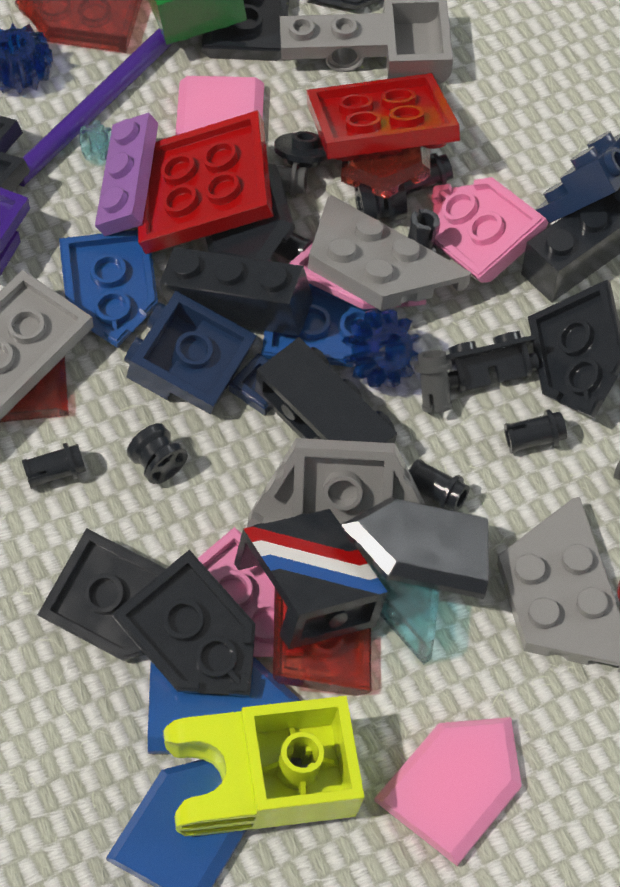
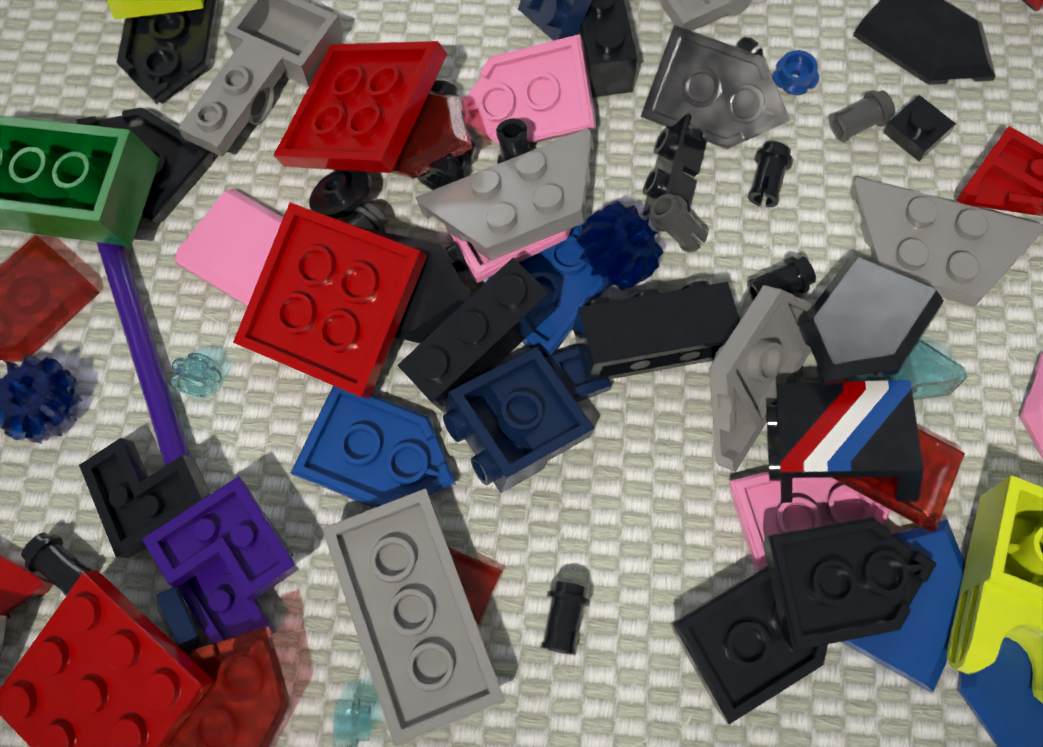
camera: 55 degrees left, 10 degrees up
(126, 174) = (266, 365): medium lavender plate -> none
(157, 453) = (612, 509): black wheel -> none

